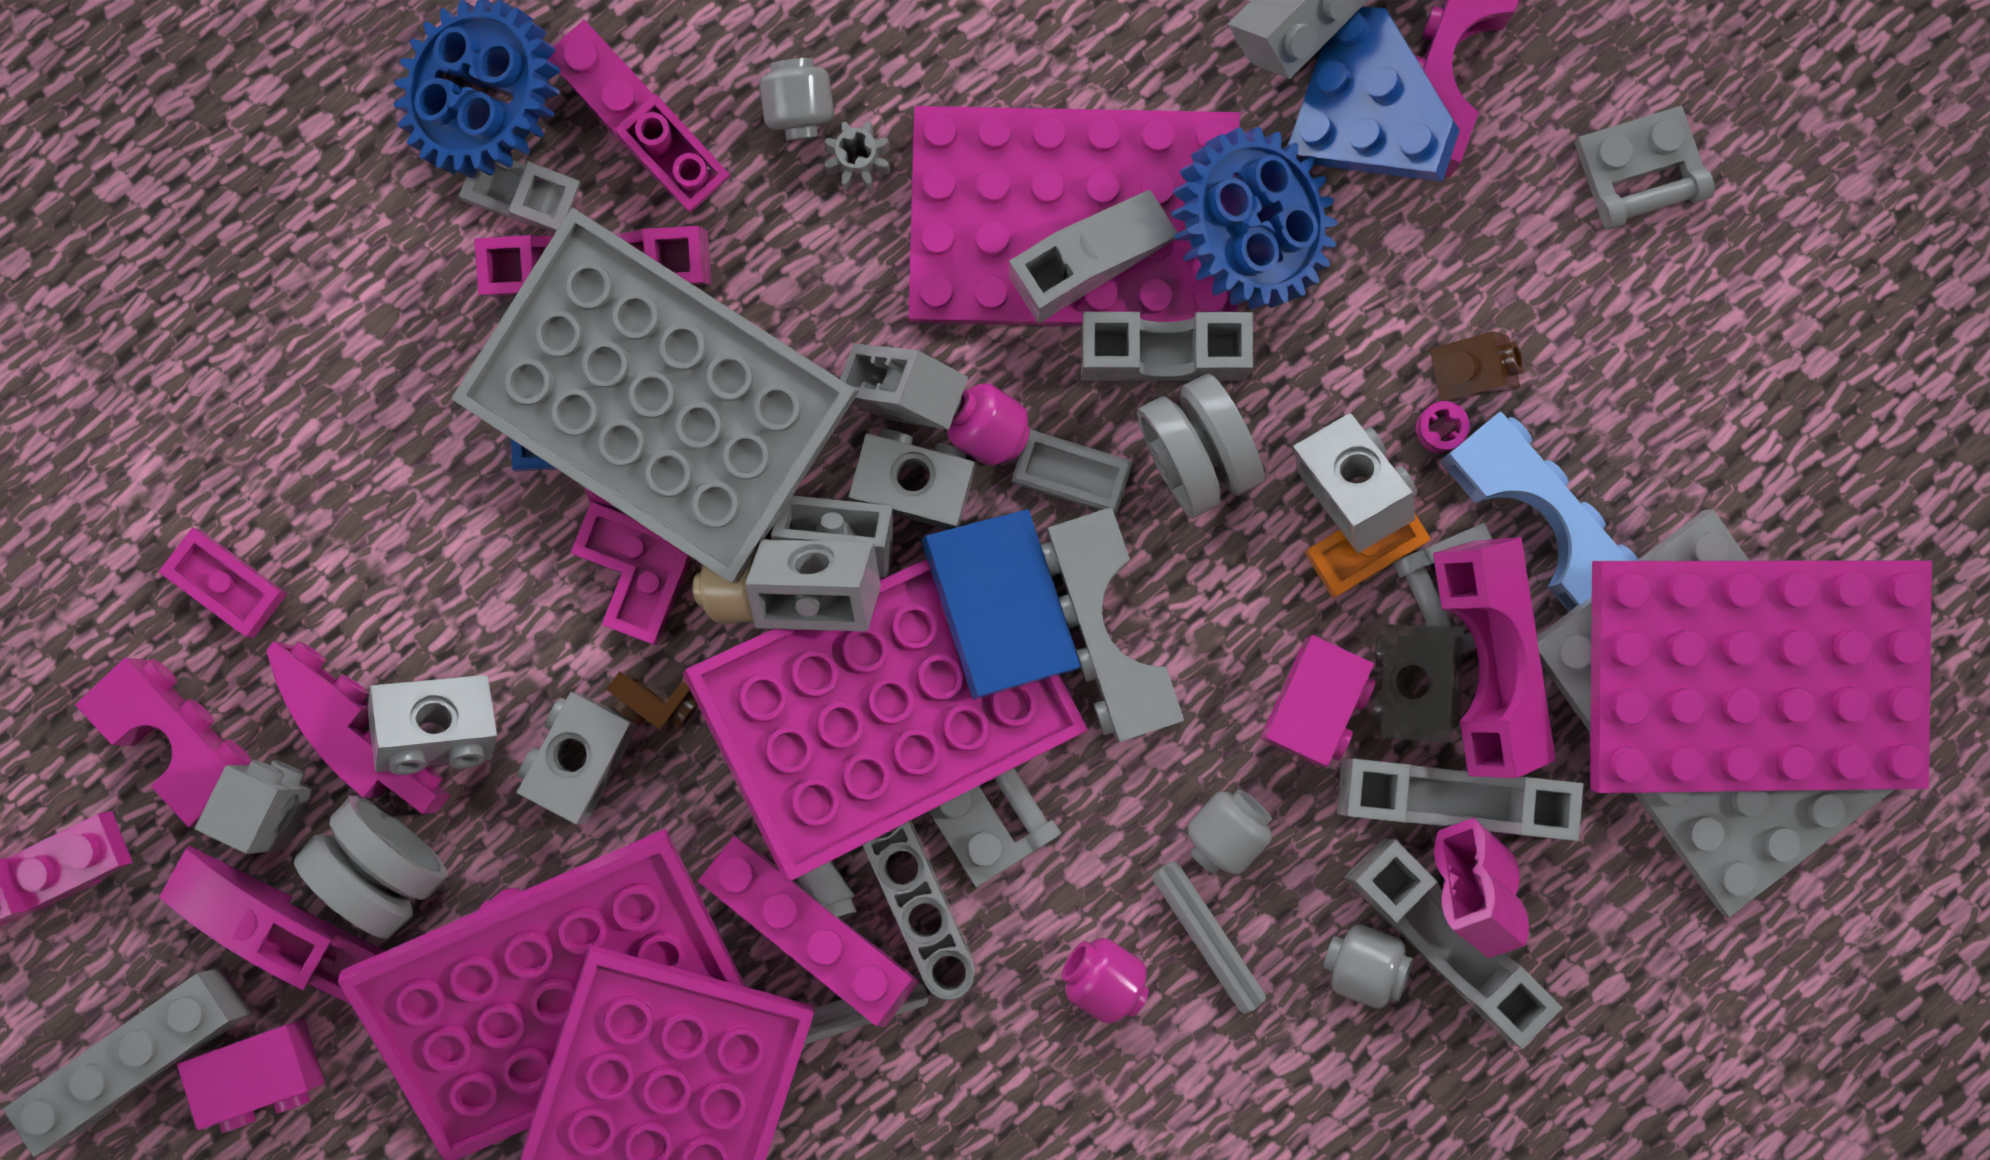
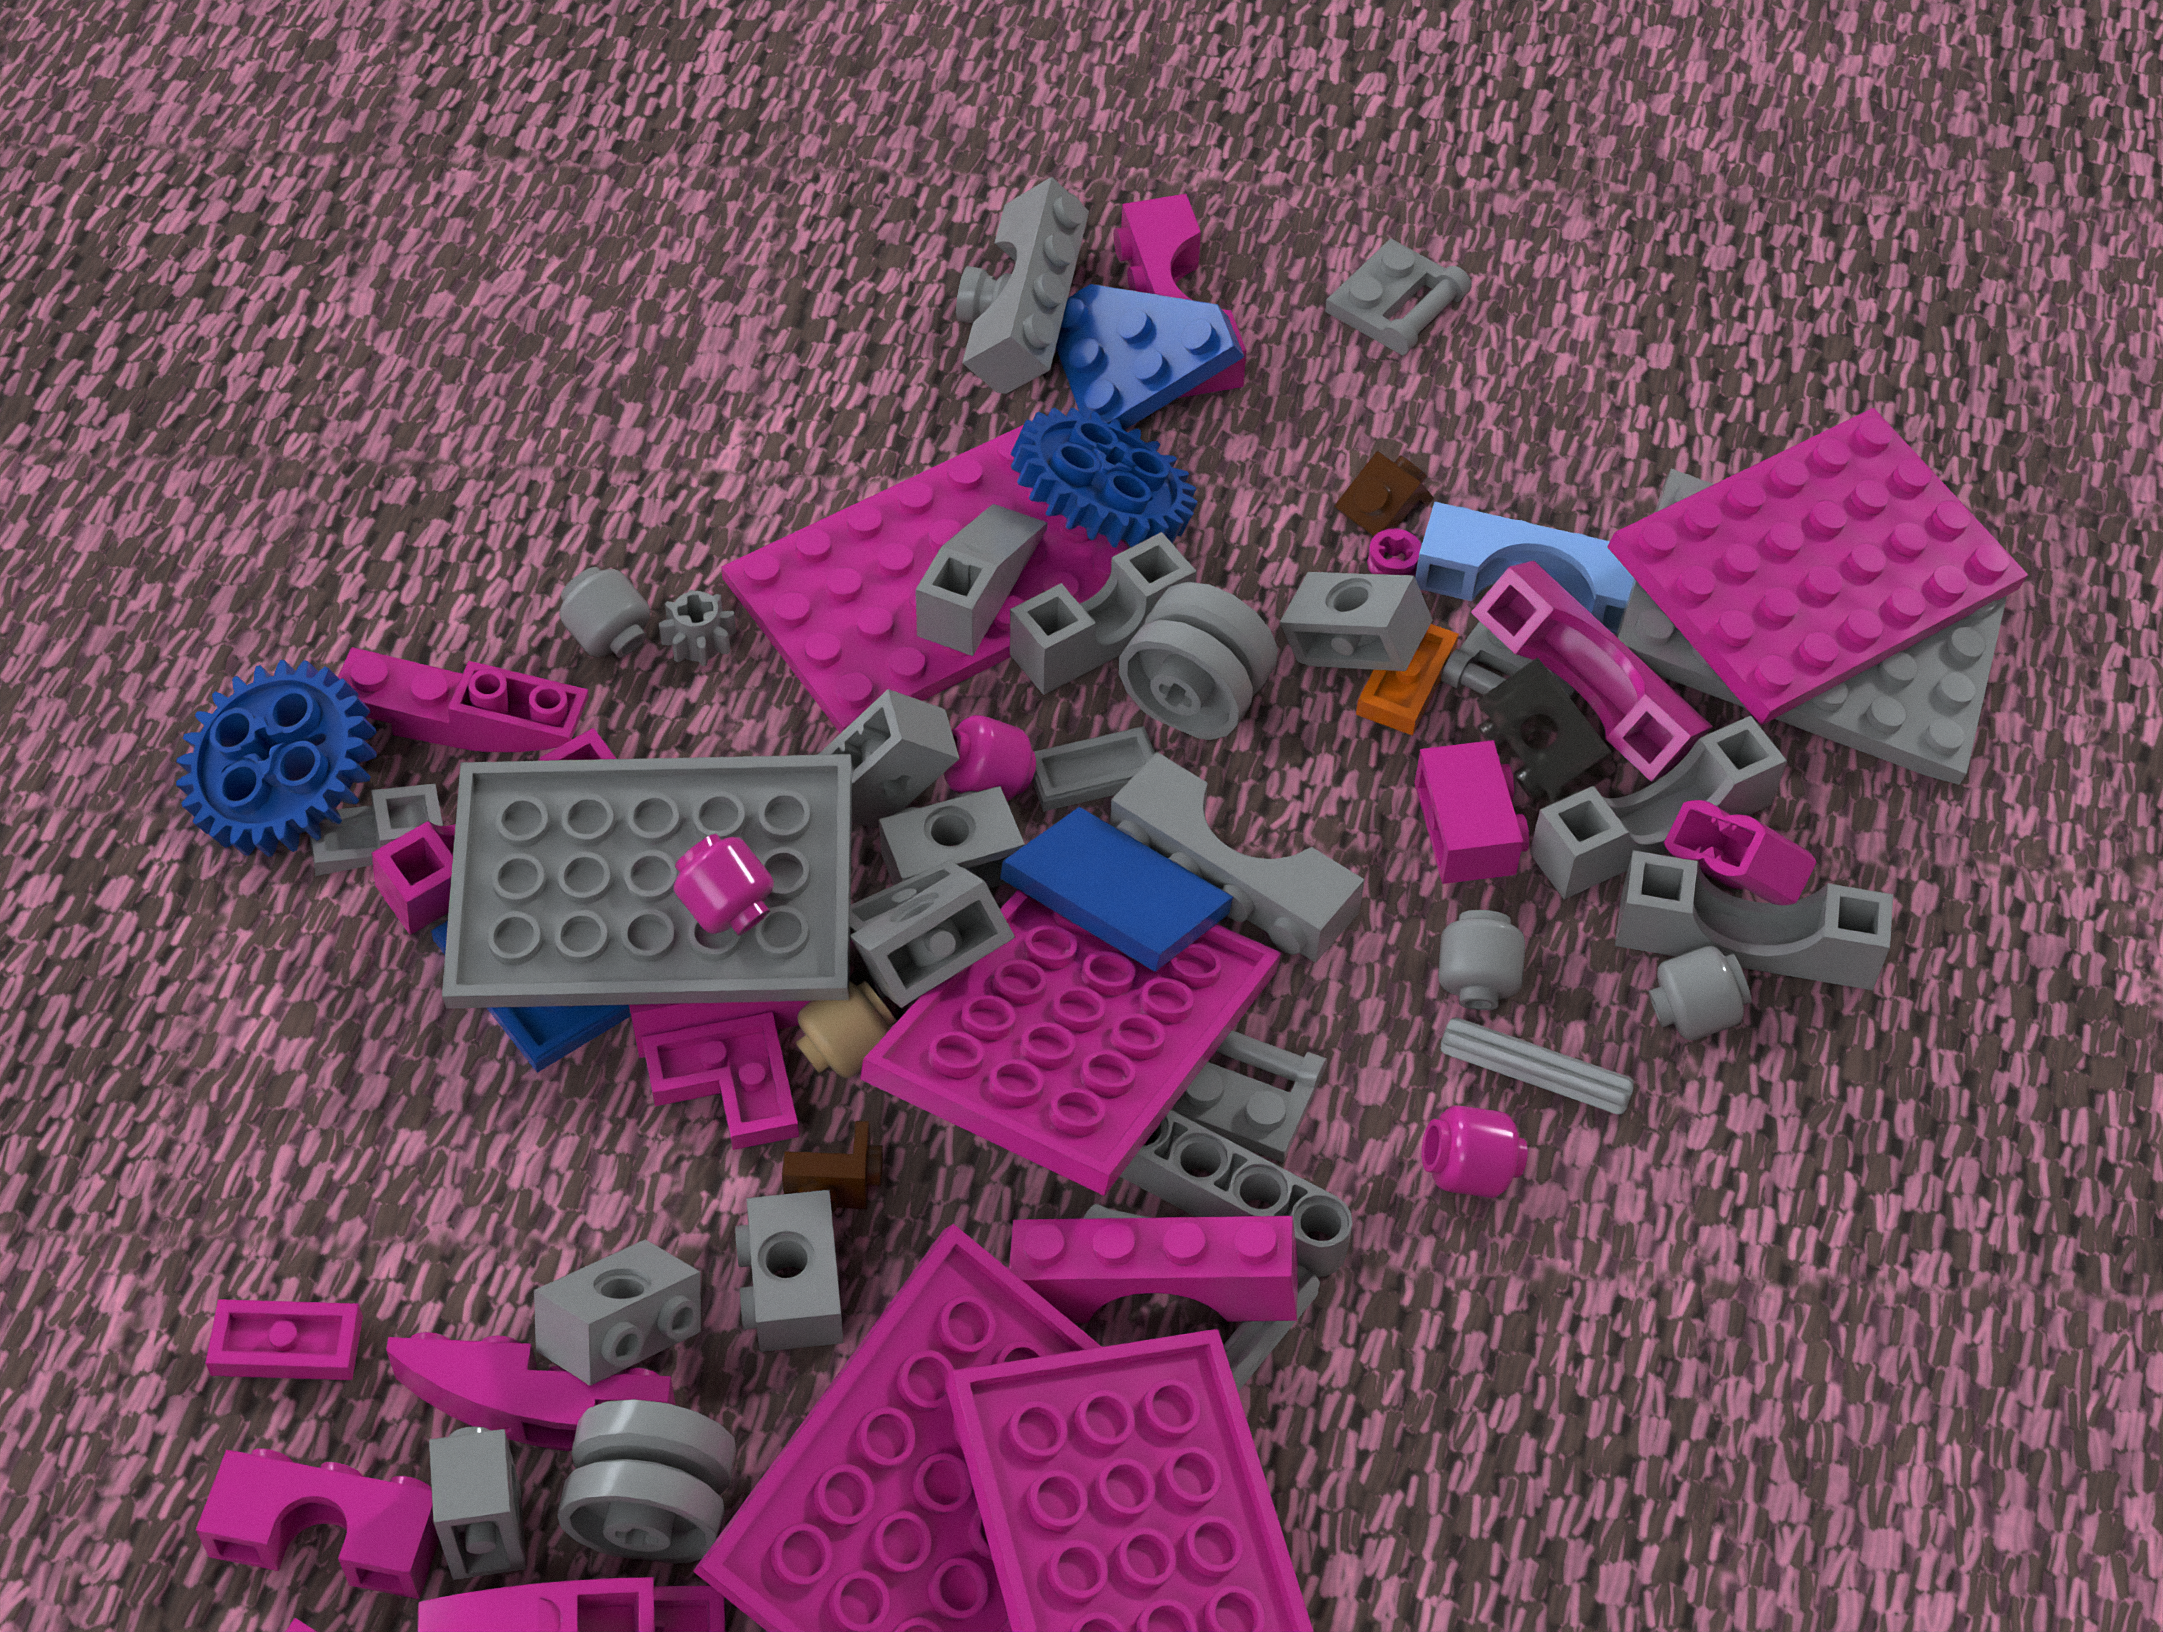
camera: 40 degrees left, 30 degrees down
(682, 453) = (723, 885): none -> dark pink head

